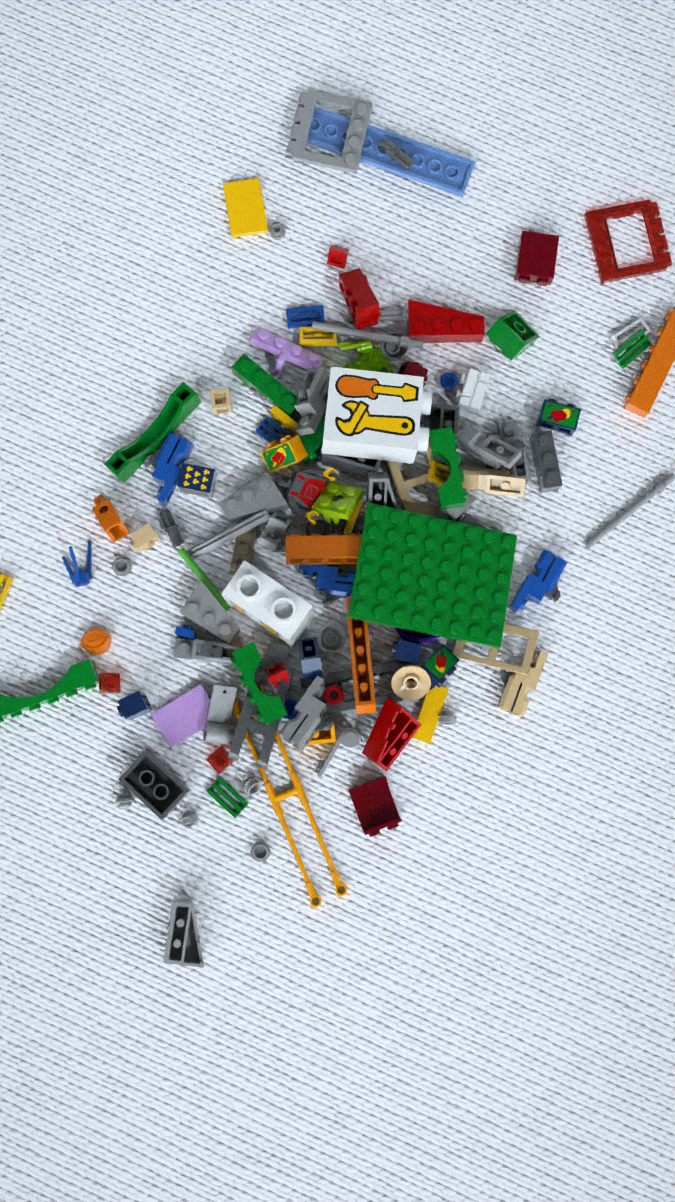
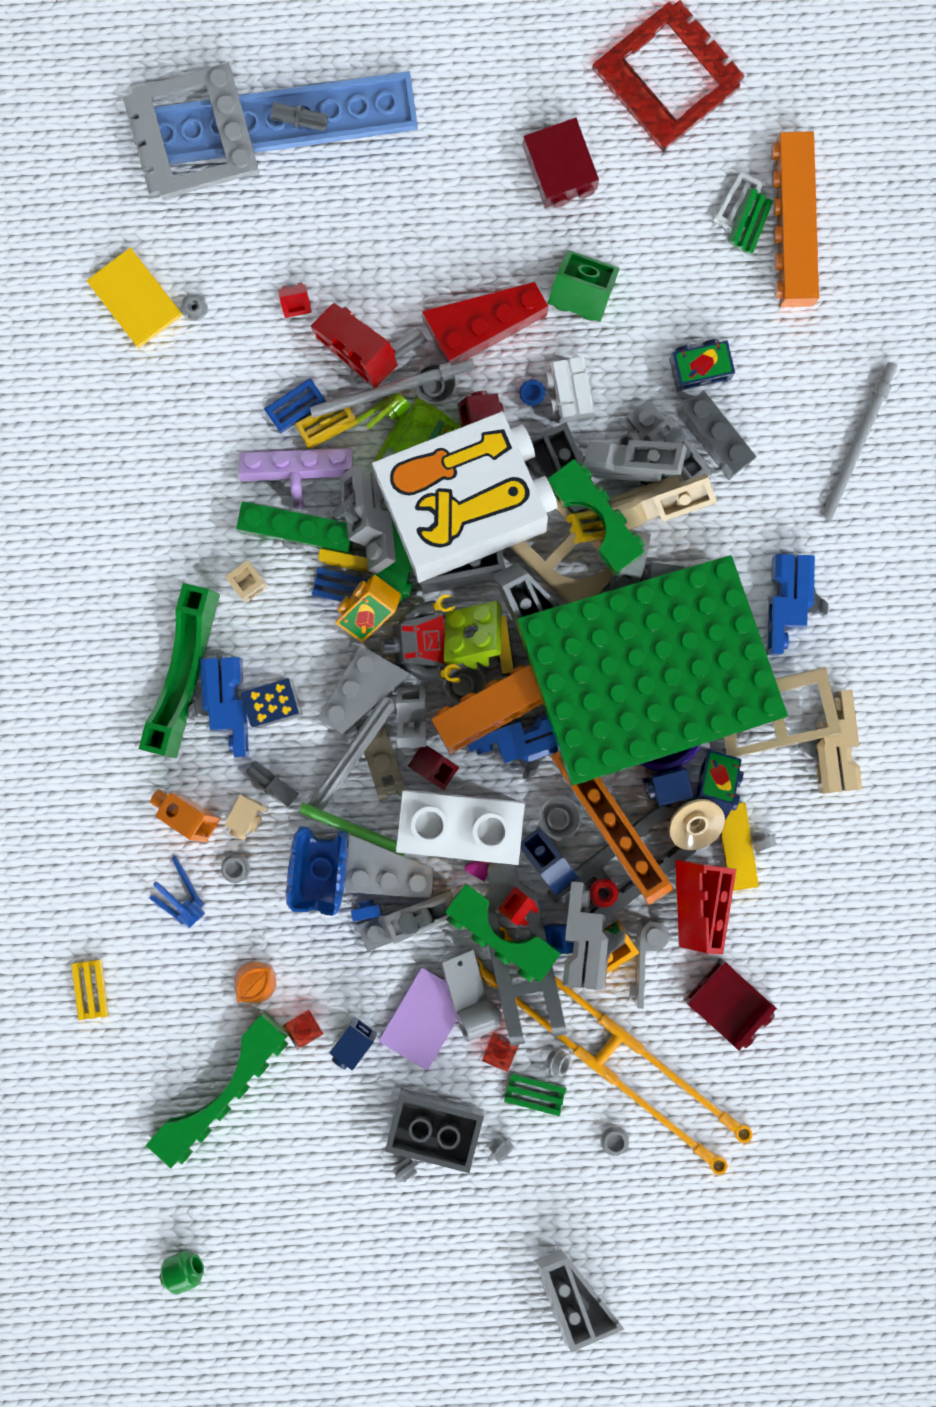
camera: 20 degrees left, 5 degrees up
(168, 591) = (316, 872): none -> blue animal
(266, 641) = (477, 869): none -> dark pink slope
(272, 566) = (433, 766): none -> dark red brick

